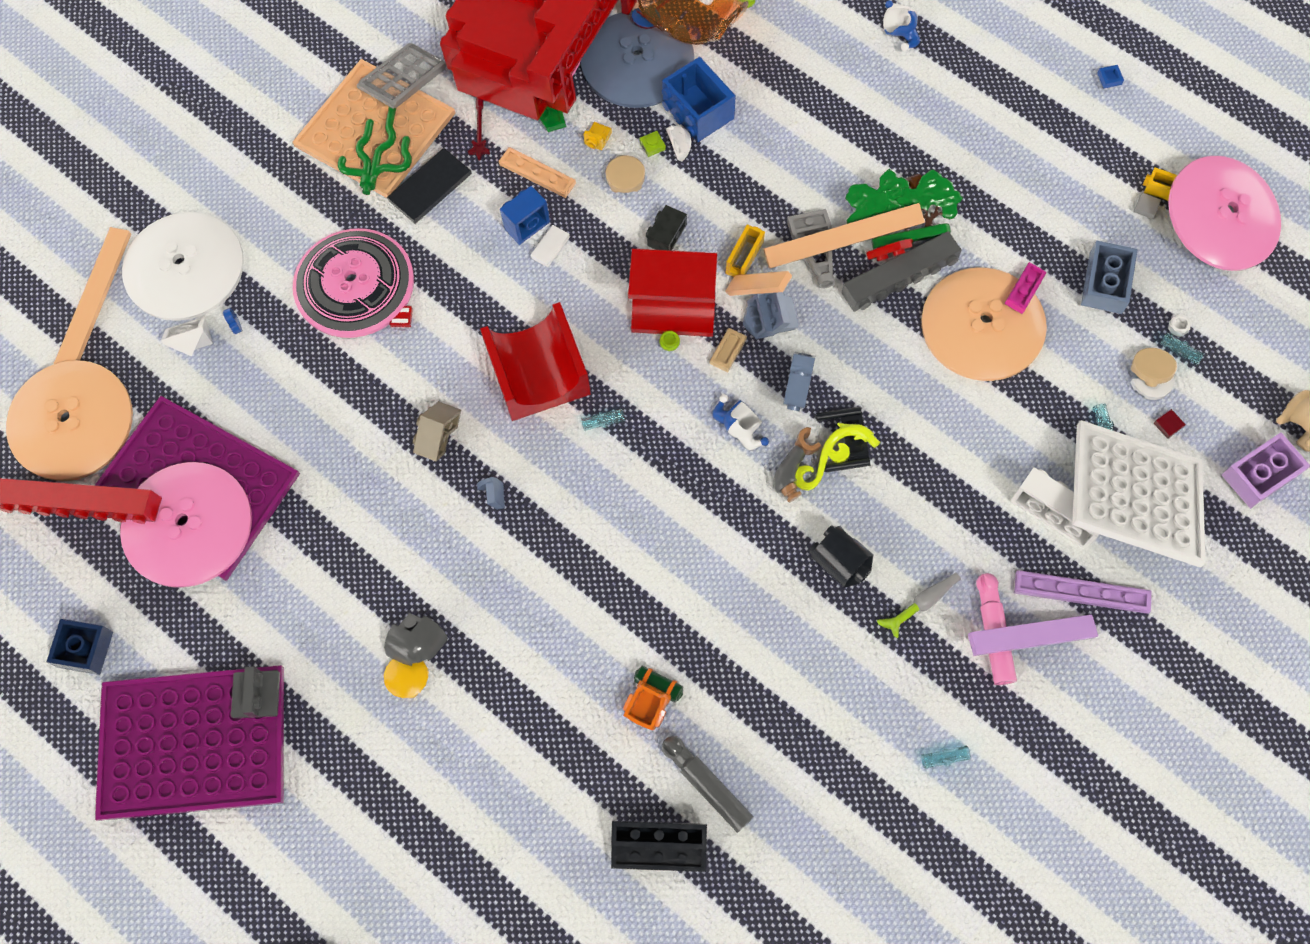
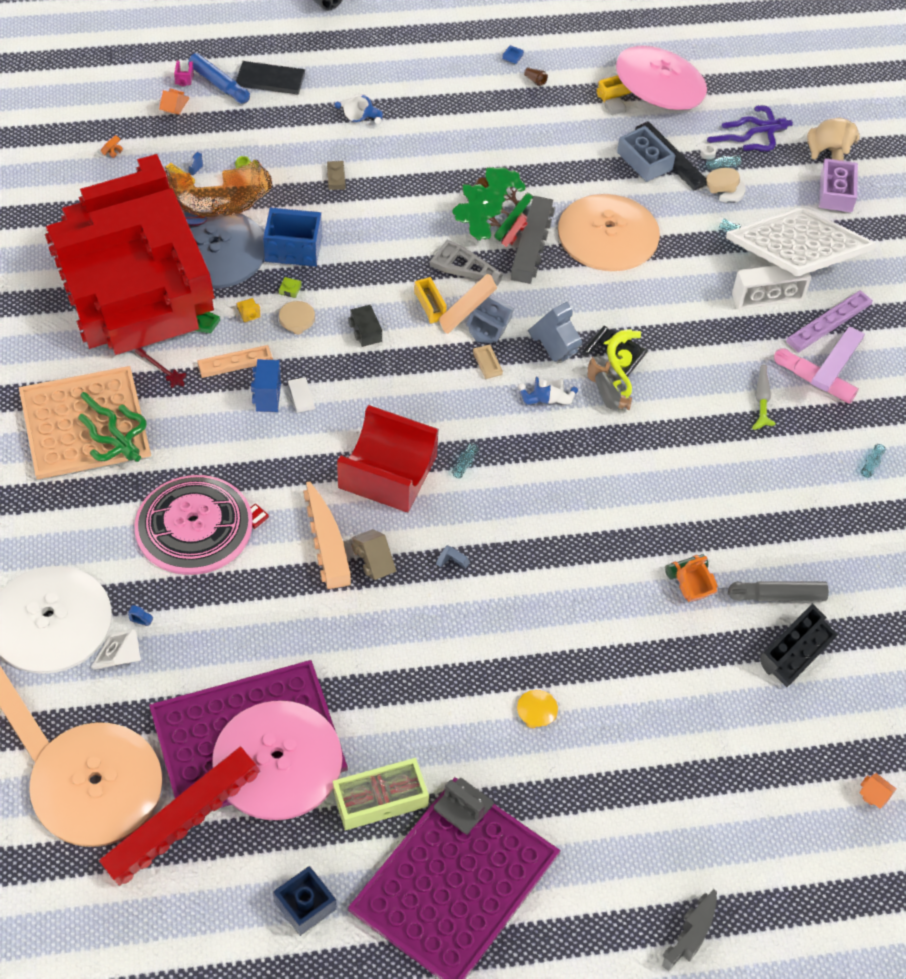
camera: 55 degrees left, 15 degrees down
(216, 623) = (380, 793): none -> brick
(401, 75) = (65, 373): clear piece -> none
(414, 640) = (519, 680): dark grey brick -> none
(422, 386) = (327, 540): none -> light nougat slope
(429, 185) = (170, 425): black tile -> none
(669, 341) = (447, 384): lime plate -> none
(672, 292) = (422, 346): red piece -> none
(680, 141) = (307, 271): white tile -> none
(810, 70) = (336, 175): none -> dark tan plate
(842, 557) = (697, 407): black cylinder -> none
(844, 236) = (479, 243): light nougat tile -> none
(1025, 288) = (609, 193): dark pink tile -> none
(1106, 117) = (539, 77): none -> reddish brown cone
(1138, 307) = (681, 164): none -> black plate
(1169, 423) = (764, 204): dark red tile -> none
(1276, 349) = (769, 126): none -> dark purple plant

